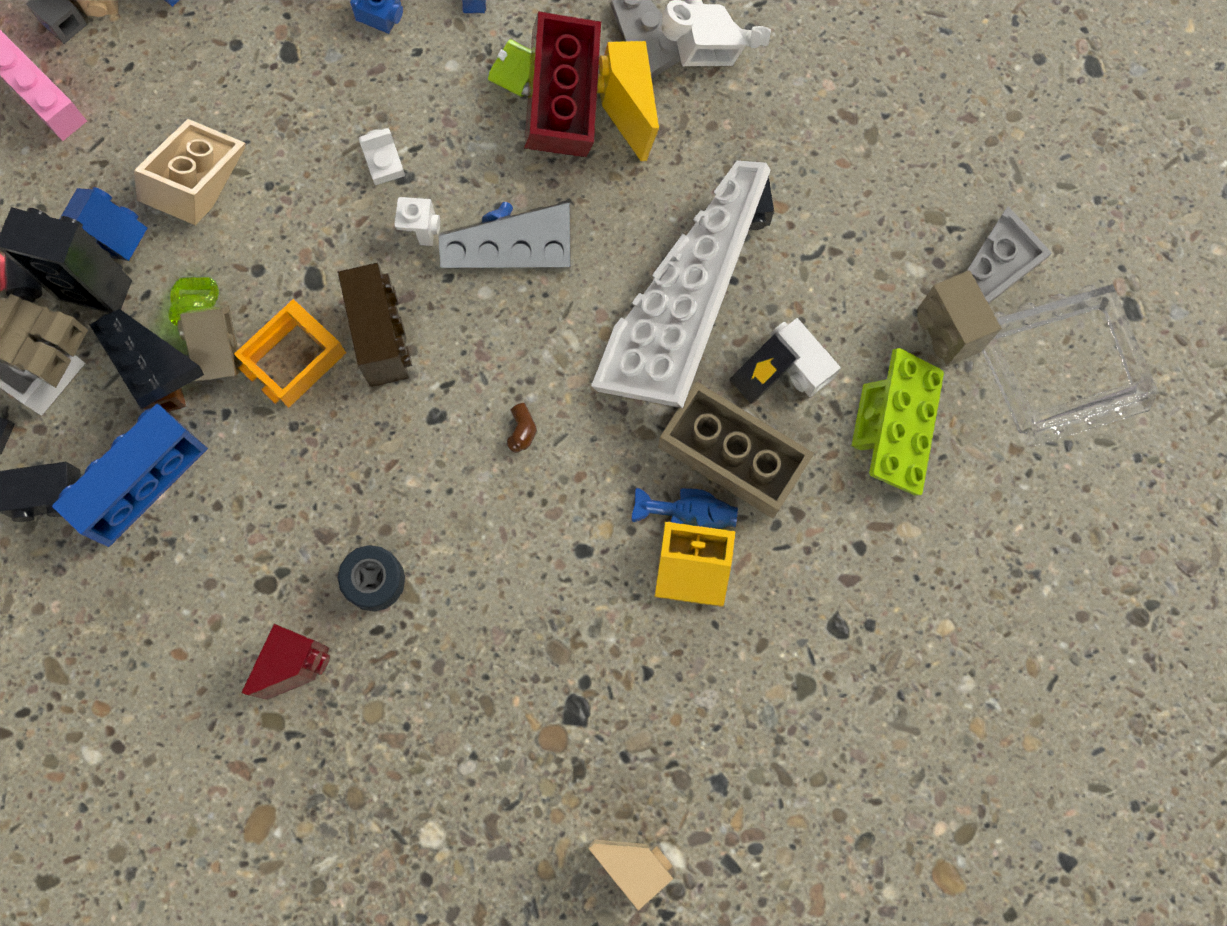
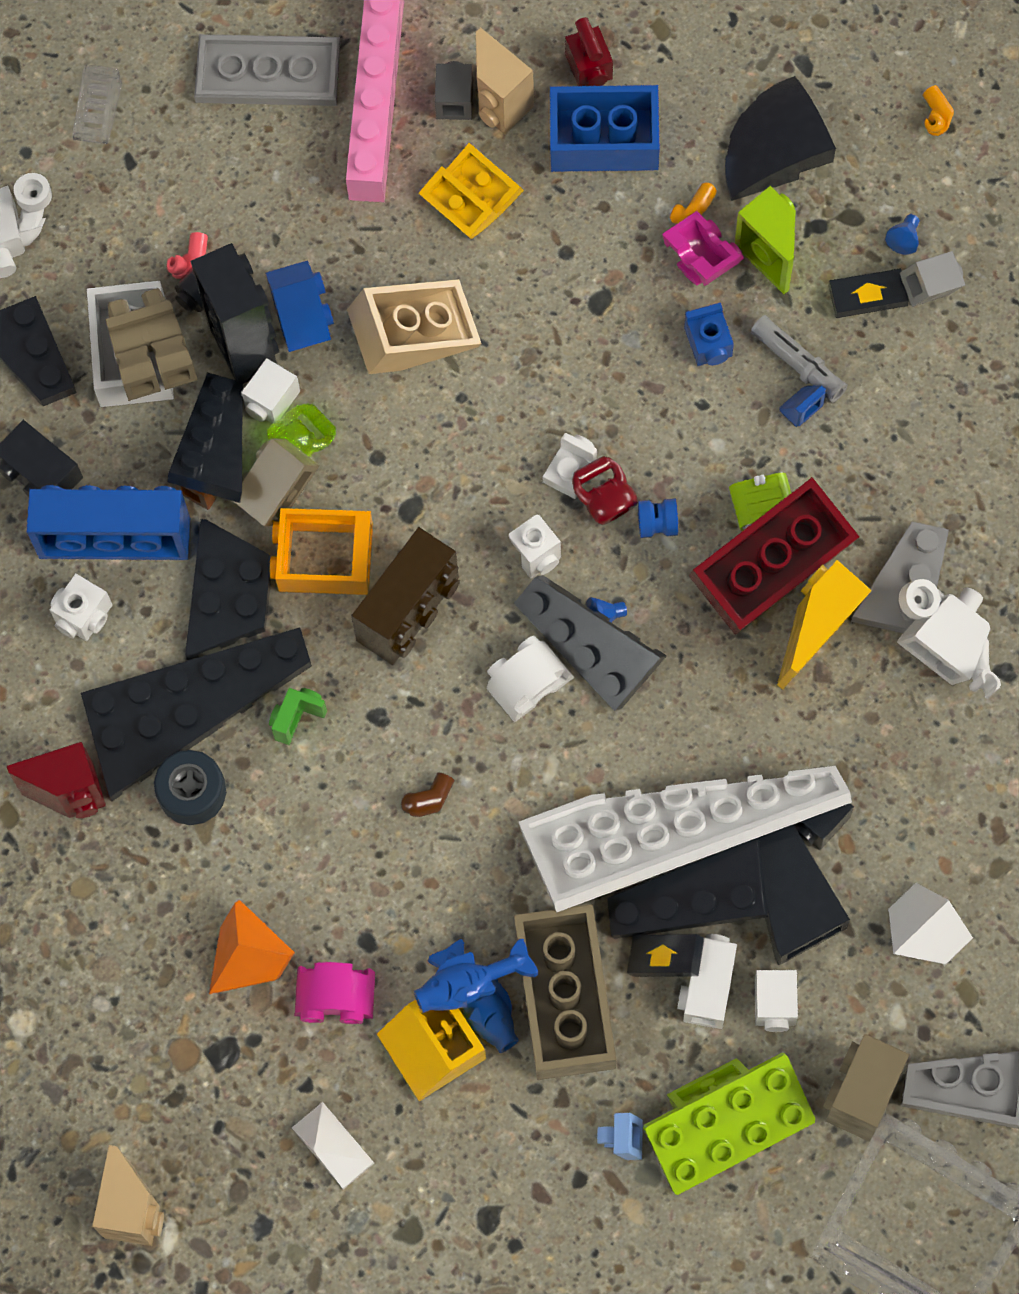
camera: 55 degrees right, 5 degrees down
(135, 62) = (471, 191): none -> yellow slope
(144, 295) = (270, 392): none -> white brick
(172, 546) = (80, 608): none -> white brick
(255, 439) = (227, 591): none -> black wing
(304, 546) = (178, 706): none -> black wing
(381, 473) = (286, 717): none -> bright green bracket
(427, 151) = (608, 499): none -> dark red piece
(468, 134) = (658, 518): none -> blue wheel
(498, 302) = (526, 677): none -> white cylinder
(521, 636) = (247, 952): none -> orange slope
(600, 601) = (334, 990): none -> dark pink cylinder
(679, 506) = (463, 981): none -> blue animal
(704, 689) = (332, 1145): none -> white slope
(746, 310) = (702, 894): none -> black wing
(790, 261) = (798, 897): none -> black slope
(848, 327) = (776, 999): none -> white brick
(860, 494) = (624, 1136): none -> light blue tile
(874, 201) = (926, 926): none -> white slope

